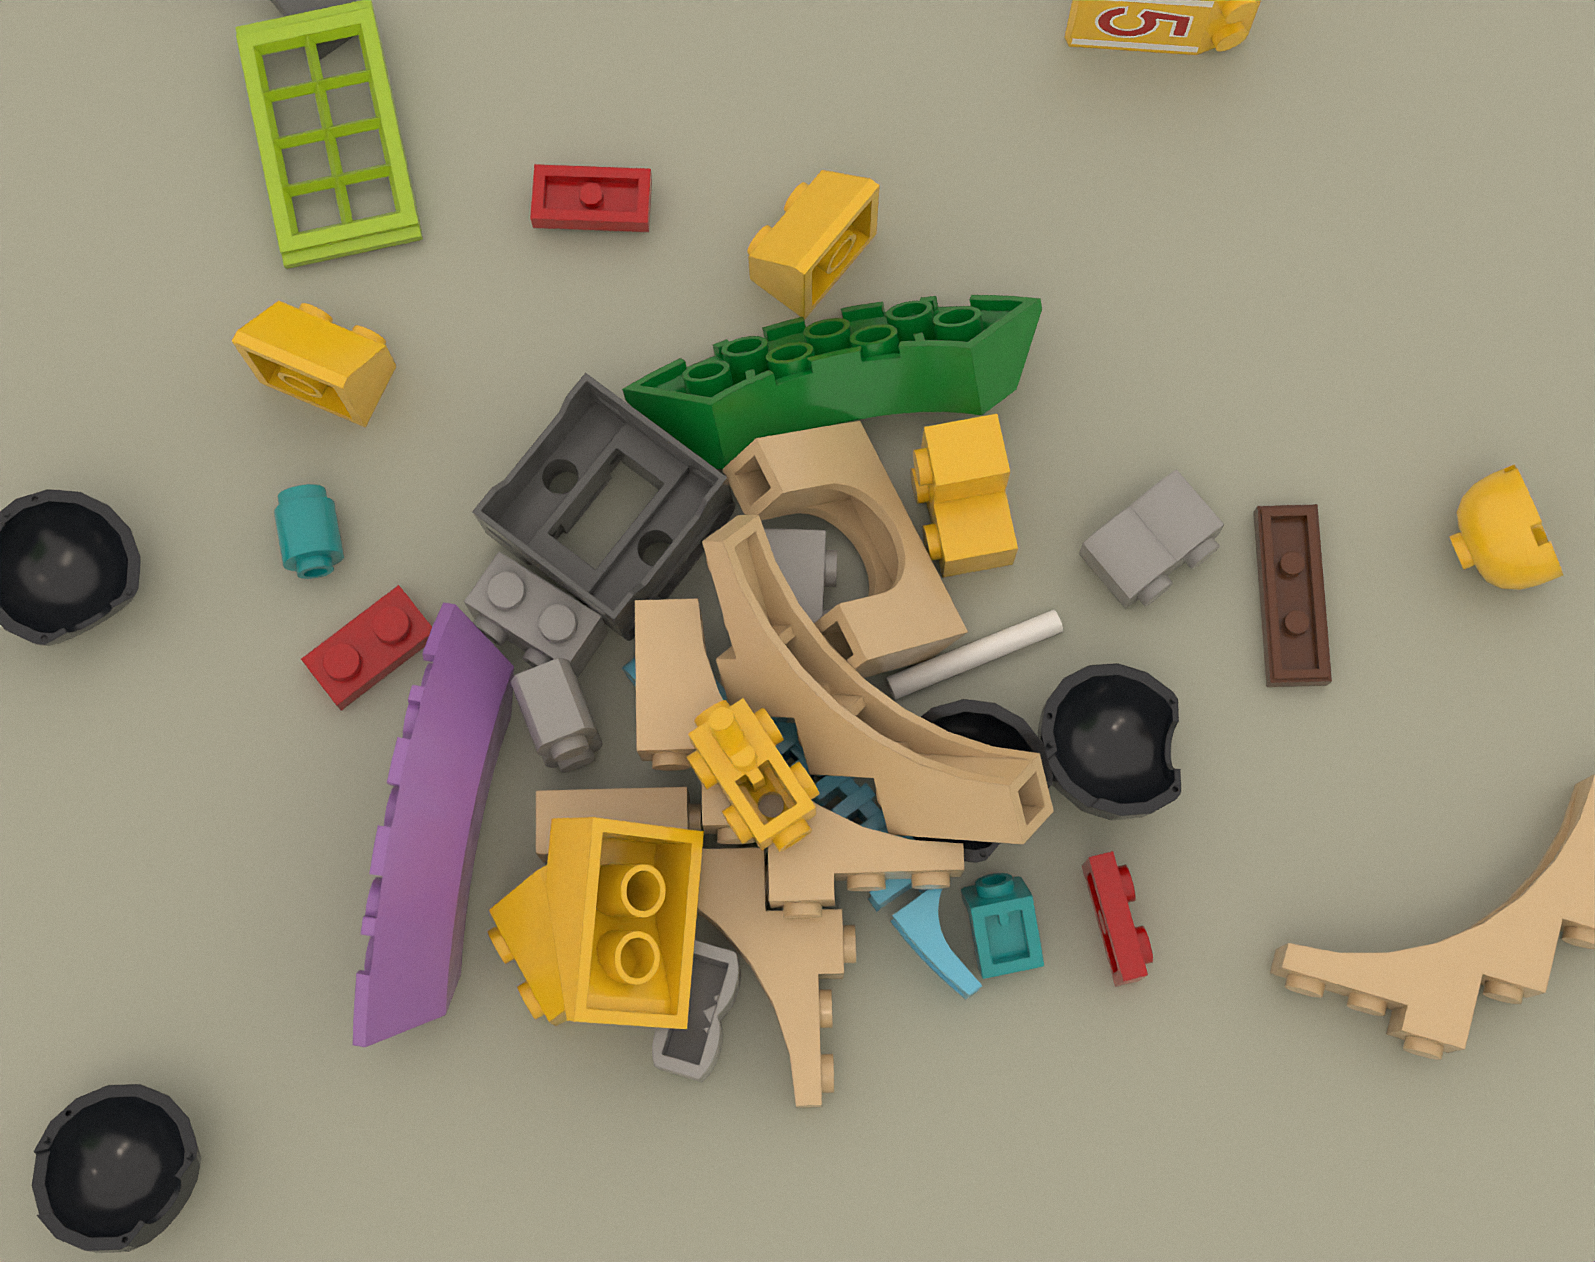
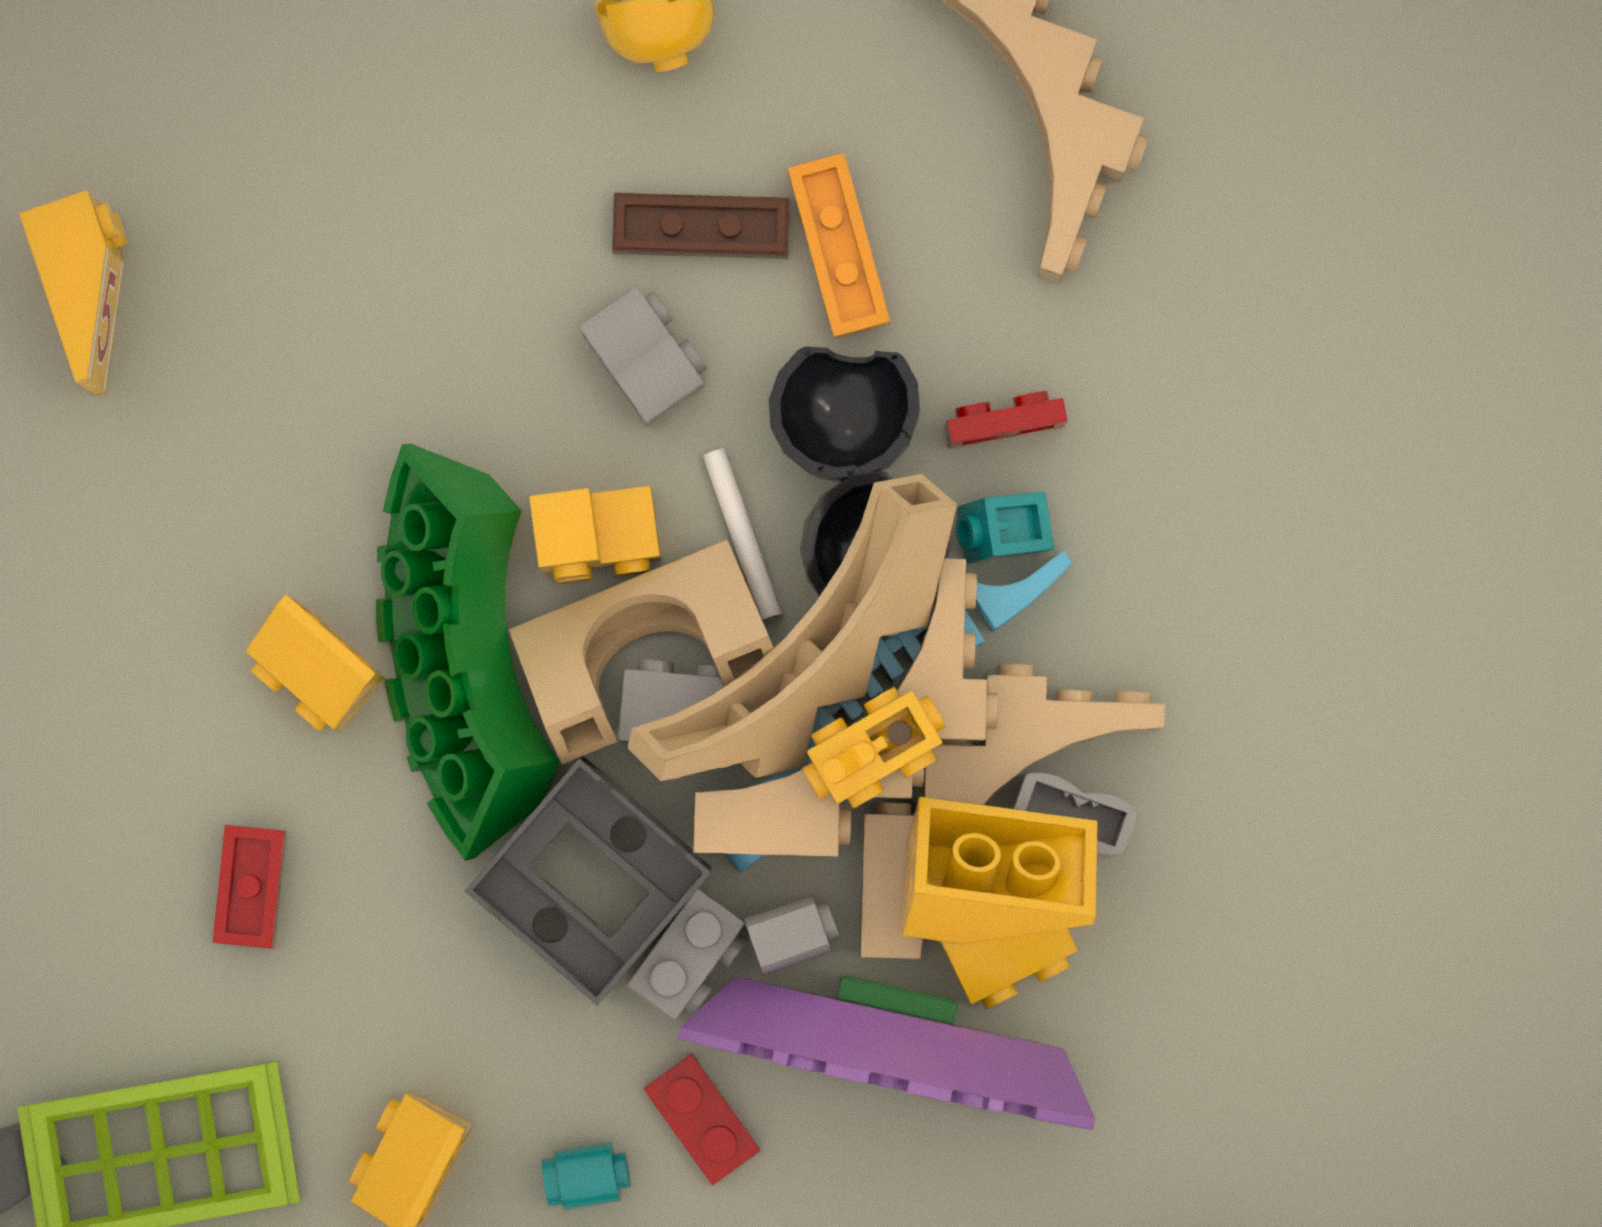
camera: 90 degrees left, 10 degrees up
(495, 836) = (897, 999): none -> green tile
(1286, 734) = (838, 246): none -> light orange plate

